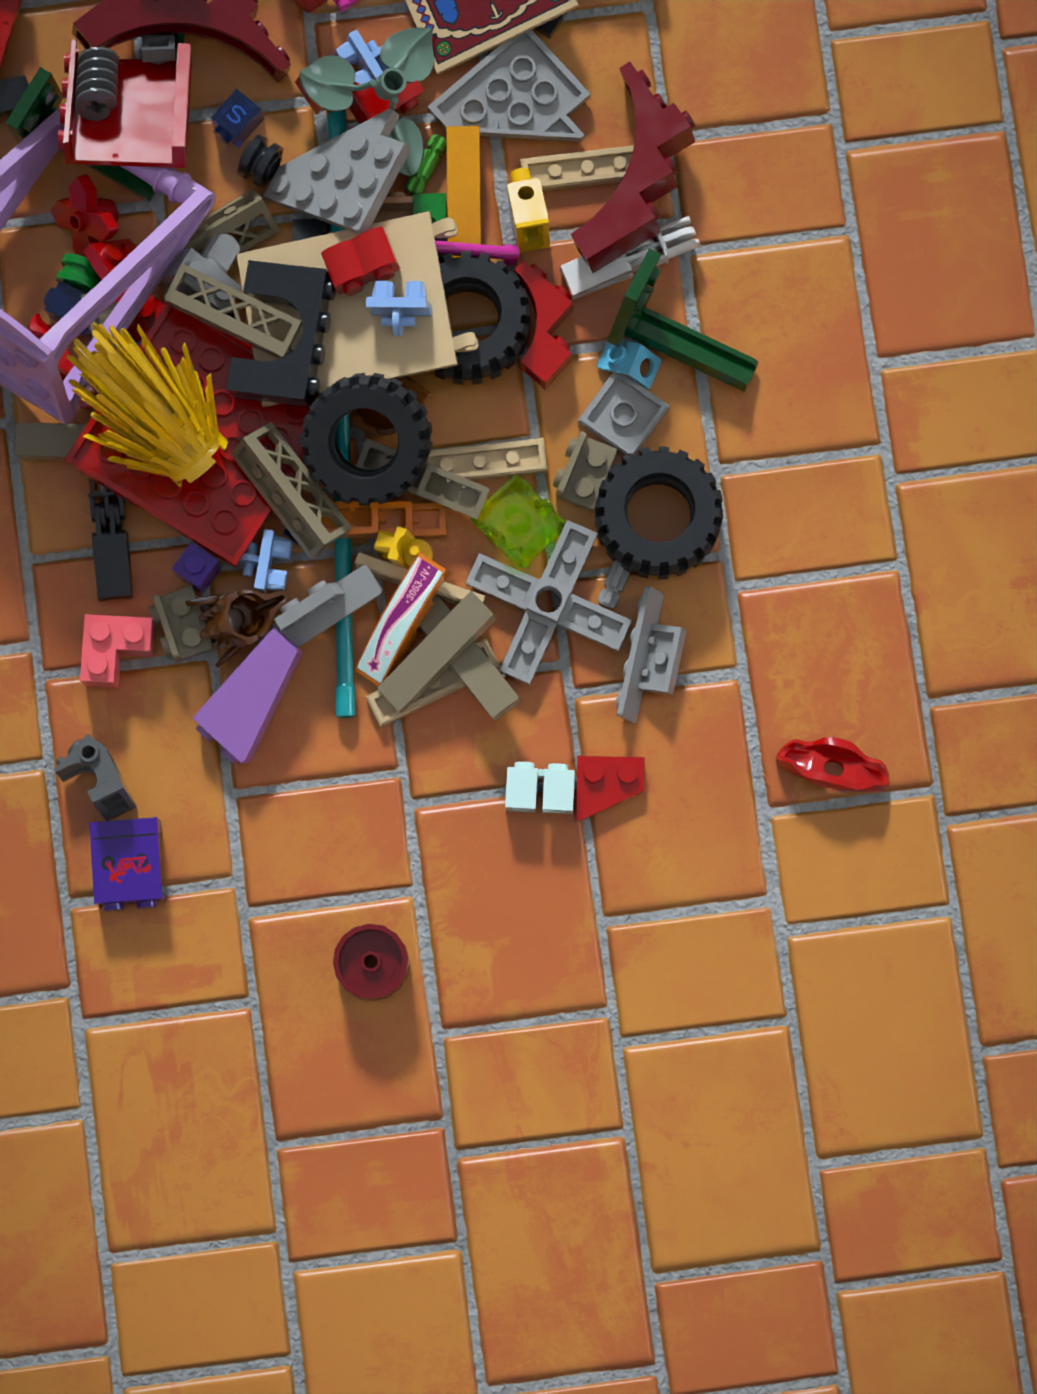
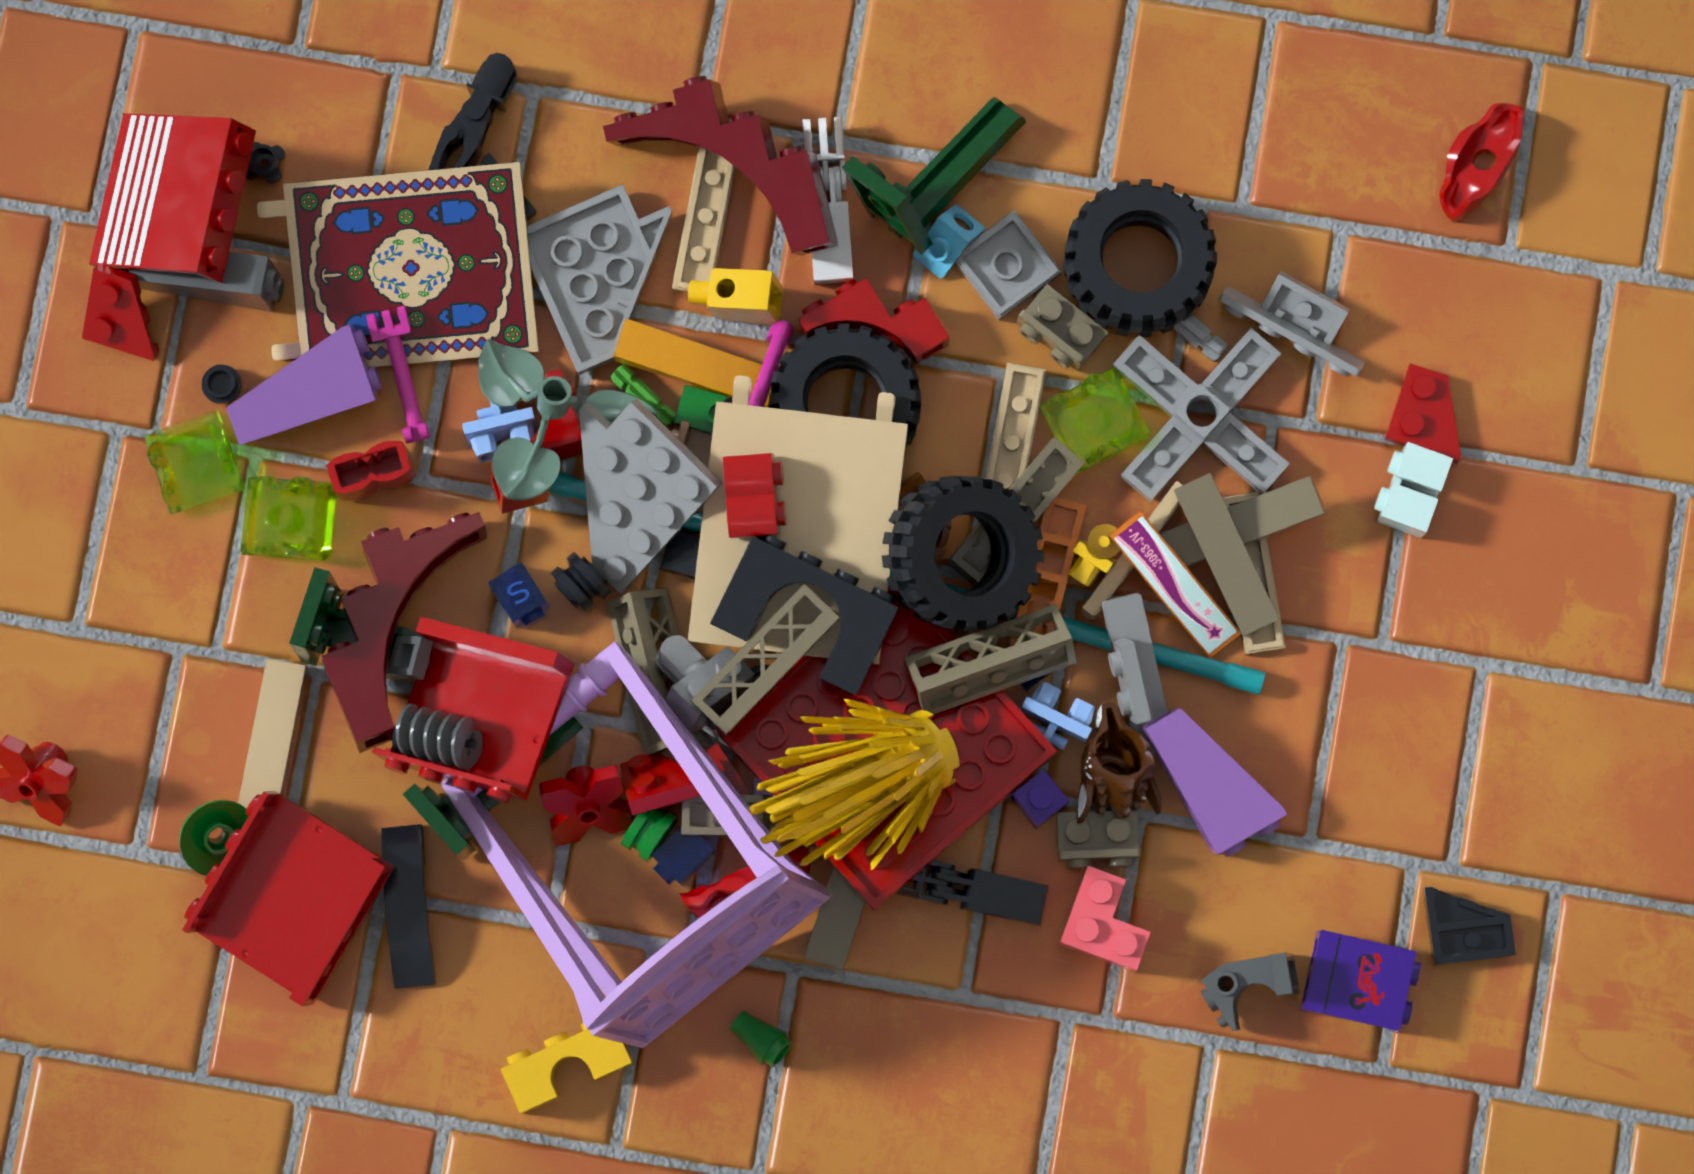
camera: 70 degrees left, 0 degrees up
(195, 936) = (1465, 930): none -> black wing
(375, 982) = (1577, 723): dark red wheel -> none
(397, 309) = (811, 483): light blue hips -> none

